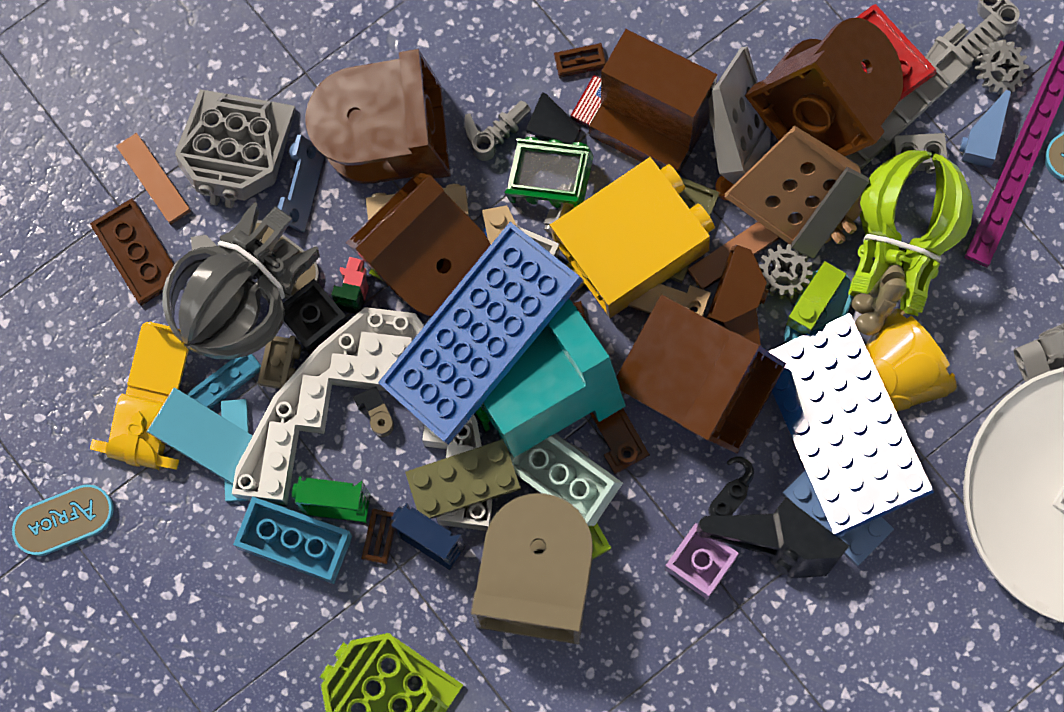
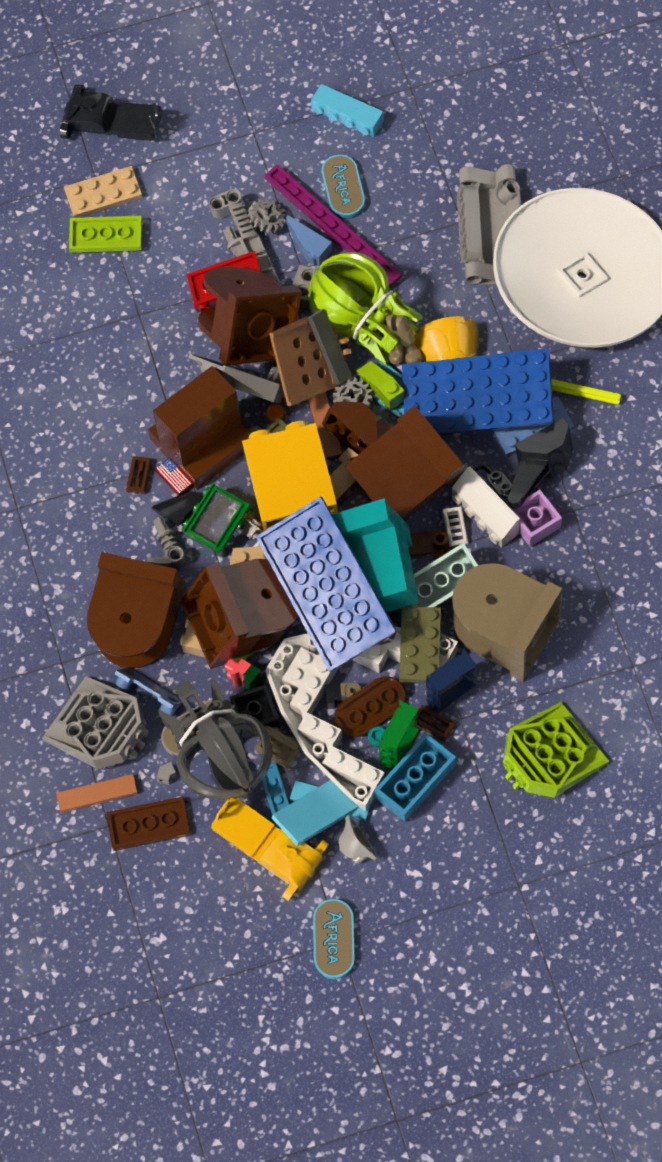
camera: 70 degrees left, 10 degrees down
(188, 501) = (354, 842): none -> light grey hat
(338, 472) = (374, 735): none -> teal tile
(369, 450) = (369, 706): none -> reddish brown tile
(651, 457) = (450, 512): none -> white slope
(690, 494) = (486, 508): none -> white slope
(915, 558) = (585, 392): none -> neon yellow axle

